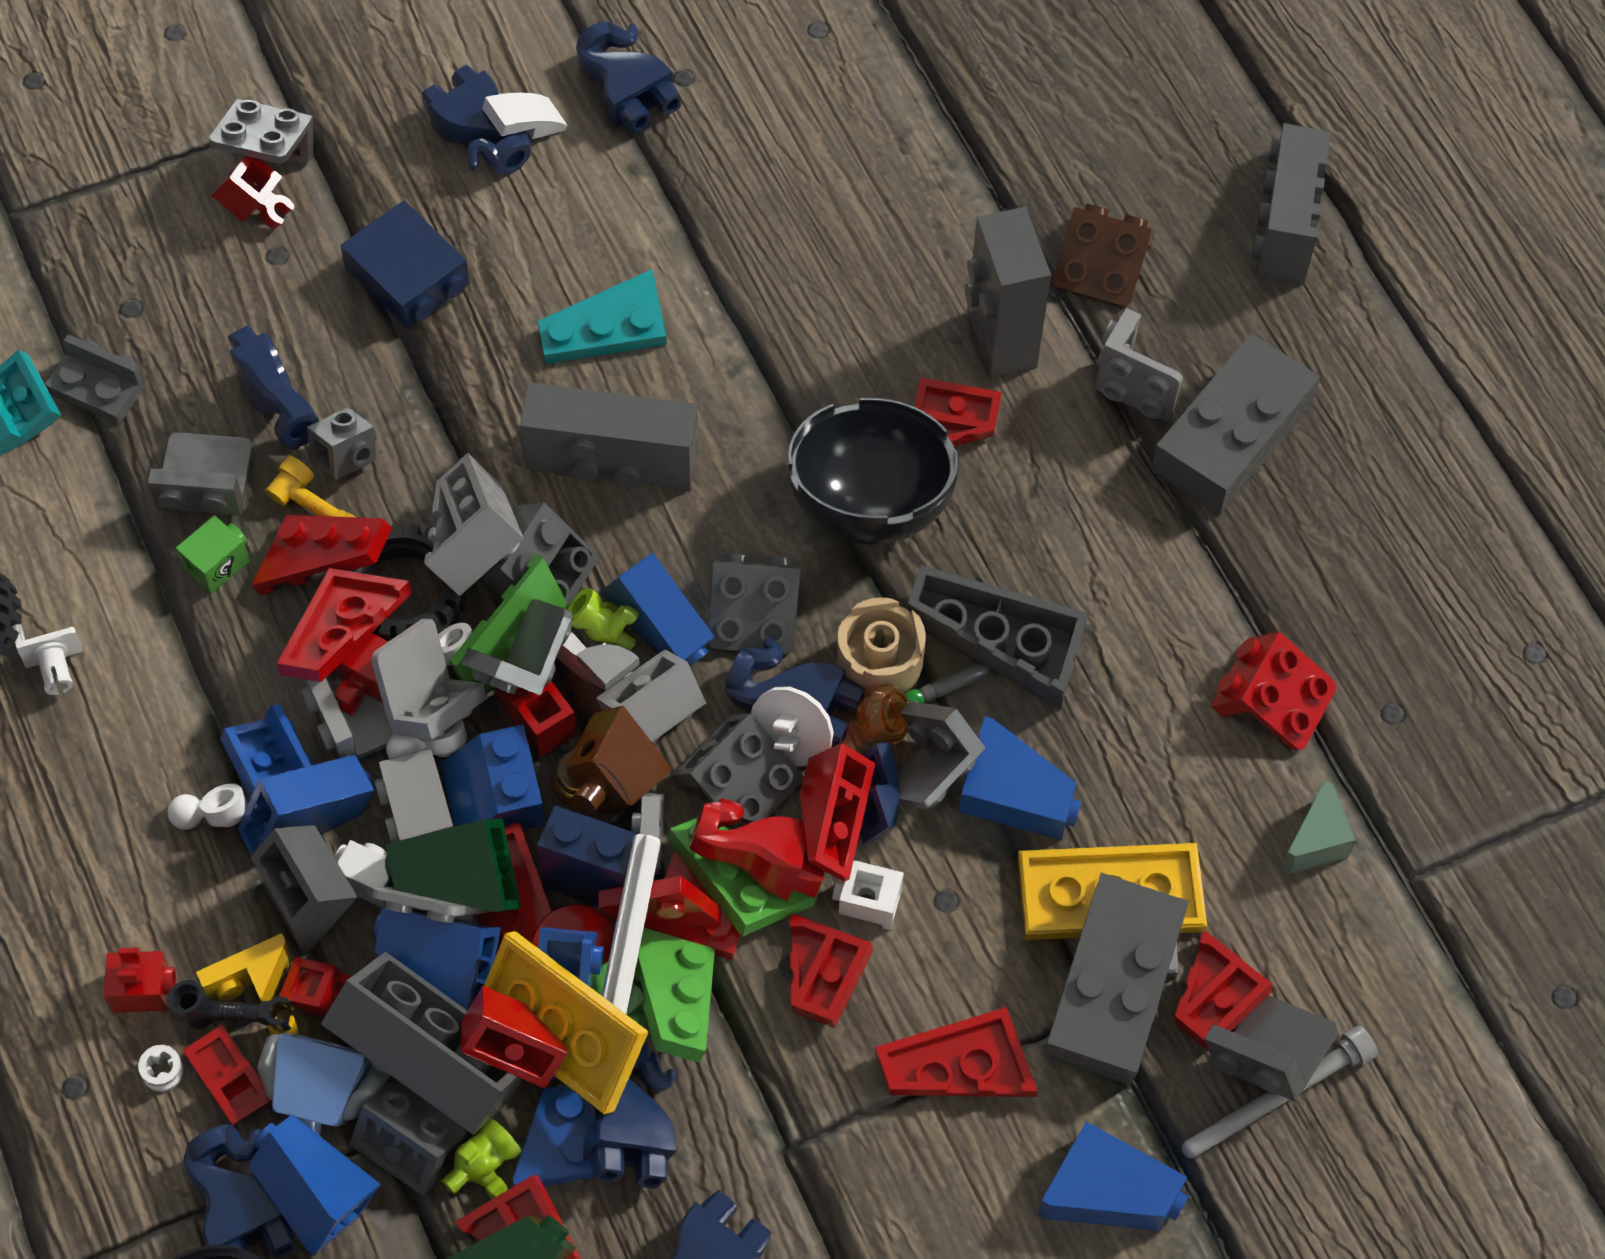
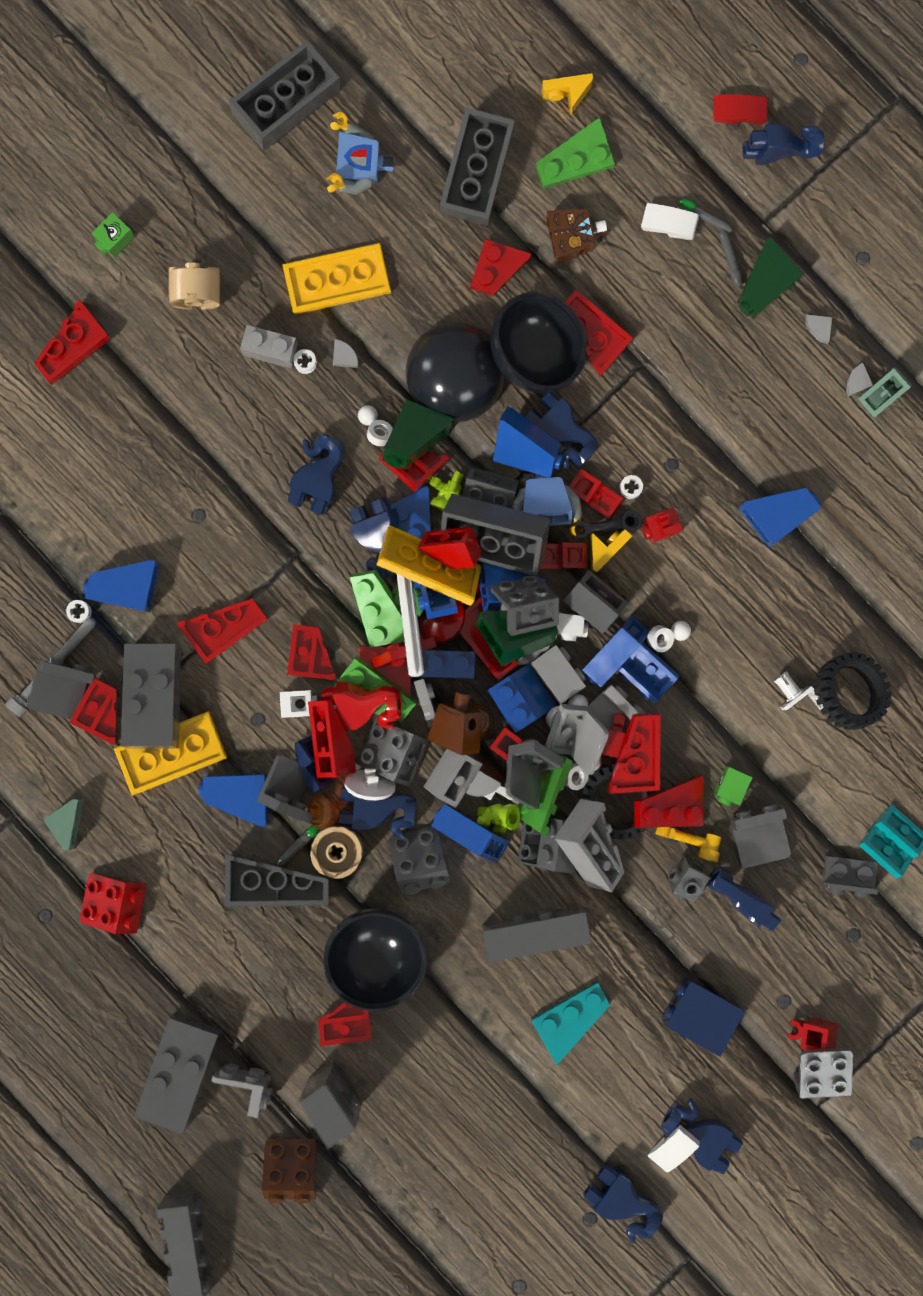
camera: 160 degrees right, 25 degrees up
(417, 901) = (528, 604): none -> dark grey bracket
(1216, 1184) = (74, 605): none -> white bush

